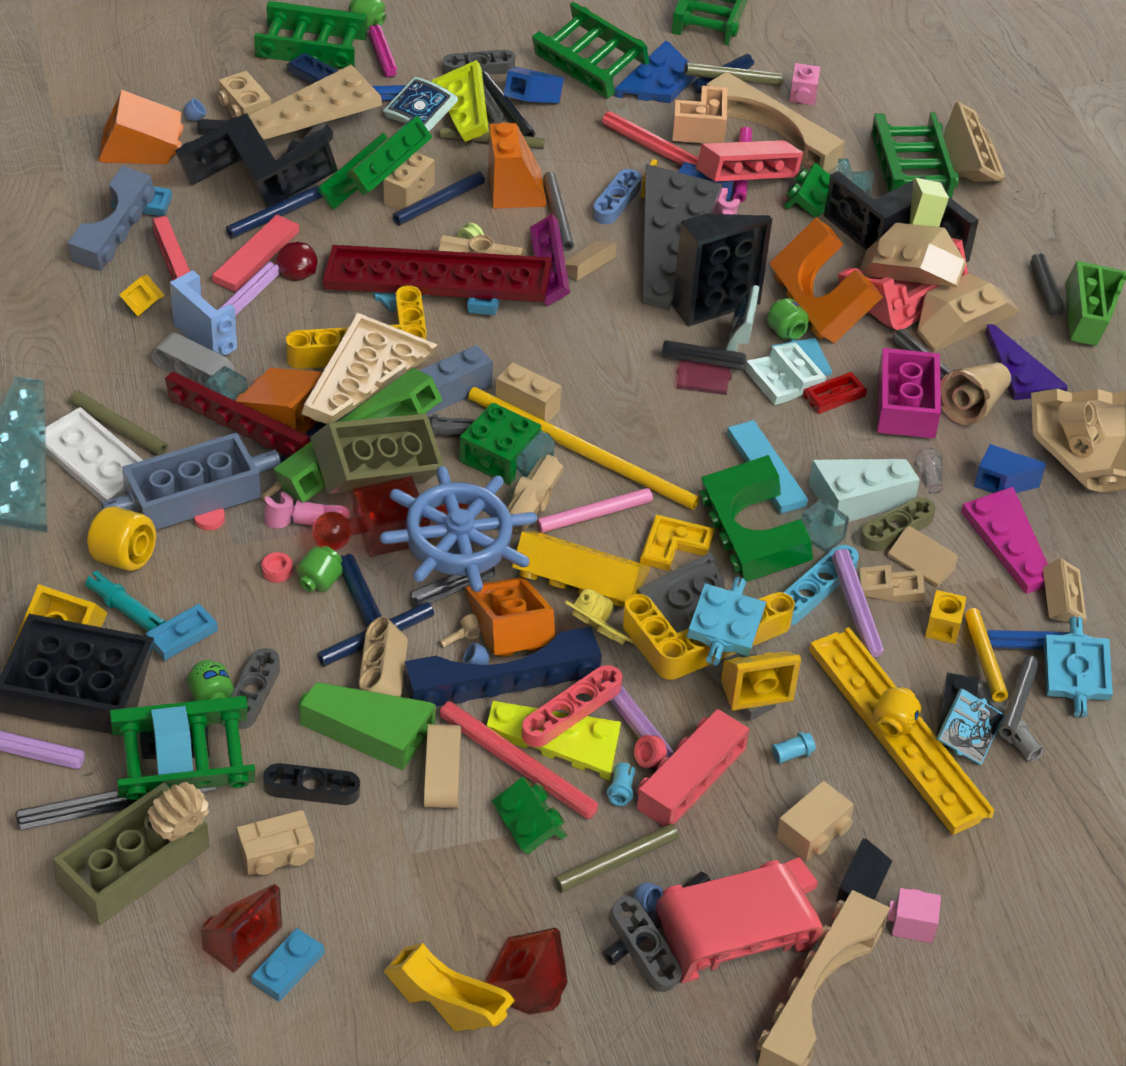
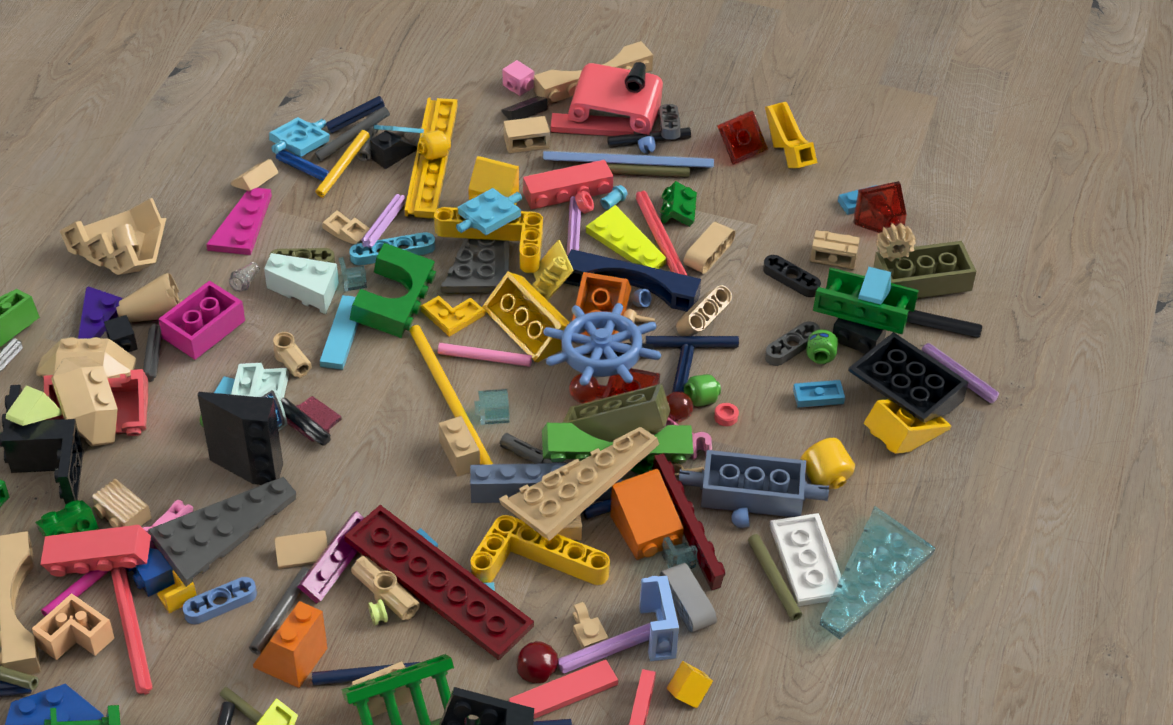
camera: 145 degrees left, 0 degrees up
(116, 596) = (849, 435): teal pin -> none
(270, 304) = (587, 630): none -> tan plate
(368, 721) = (748, 294): bright green slope -> none
(496, 442) = (512, 412): green bracket -> none
(535, 491) = (520, 377): tan piece -> none
(567, 701) = (612, 237): coral beam -> none
(649, 855) = (628, 159): none -> light blue tile
(720, 912) = (636, 78): none -> black cone
(787, 215) = (120, 506): none -> tan brick
(796, 269) = (150, 441): orange arch -> none
(797, 411) = (290, 355): none -> tan piece
(837, 395) = (237, 357): red tile -> none
(862, 179) = (23, 516): clear light blue panel -> none
(922, 553) = (311, 231): tan slope -> none
(945, 616) = (340, 192): yellow brick -> none
(969, 350) = (121, 332): none -> black brick
(1008, 469) = (200, 251): blue slope -> none
(1047, 727) = (355, 114): none -> dark blue axle

